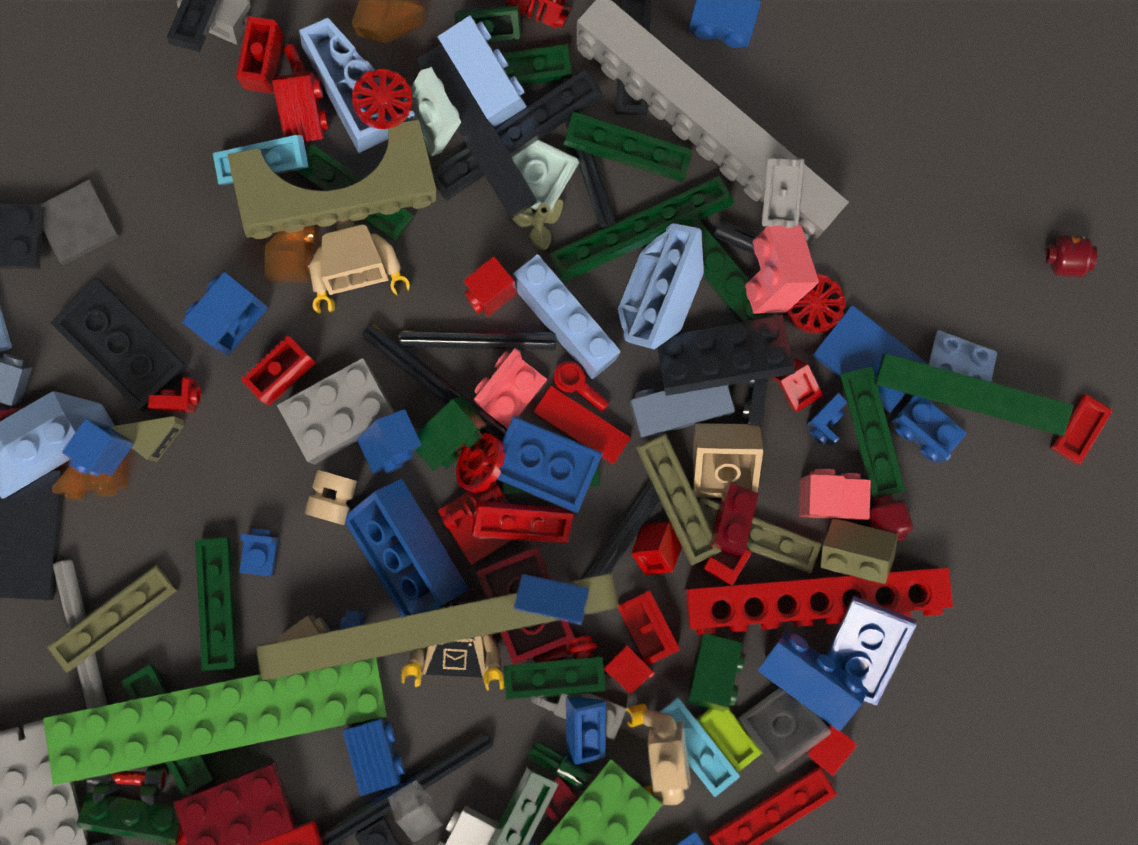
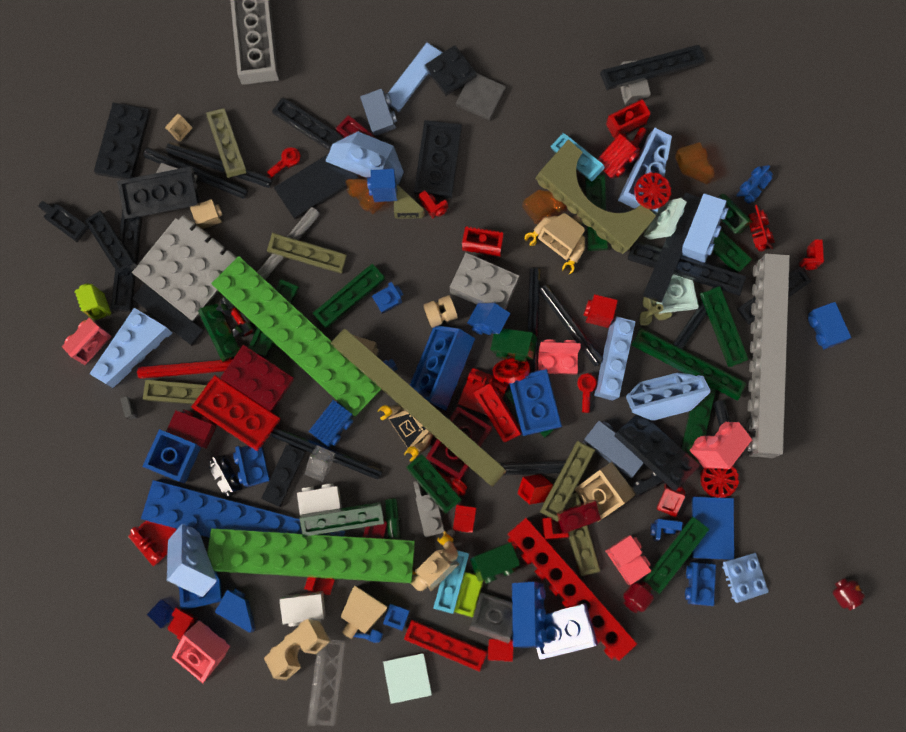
camera: 55 degrees right, 5 degrees down
(224, 314) = (490, 196): blue brick -> none
(551, 599) = (472, 449): blue slope -> none
(581, 424) = (568, 407): red tile -> none
(585, 729) = (419, 518): blue slope -> none
(648, 627) = (492, 513): red hinge -> none
(783, 192) = (760, 416): light grey hinge -> none
(859, 551) = (610, 591): olive brick -> none
(973, 394) = (735, 592): dark green tile -> none
(1082, 430) = (762, 666): red tile -> none

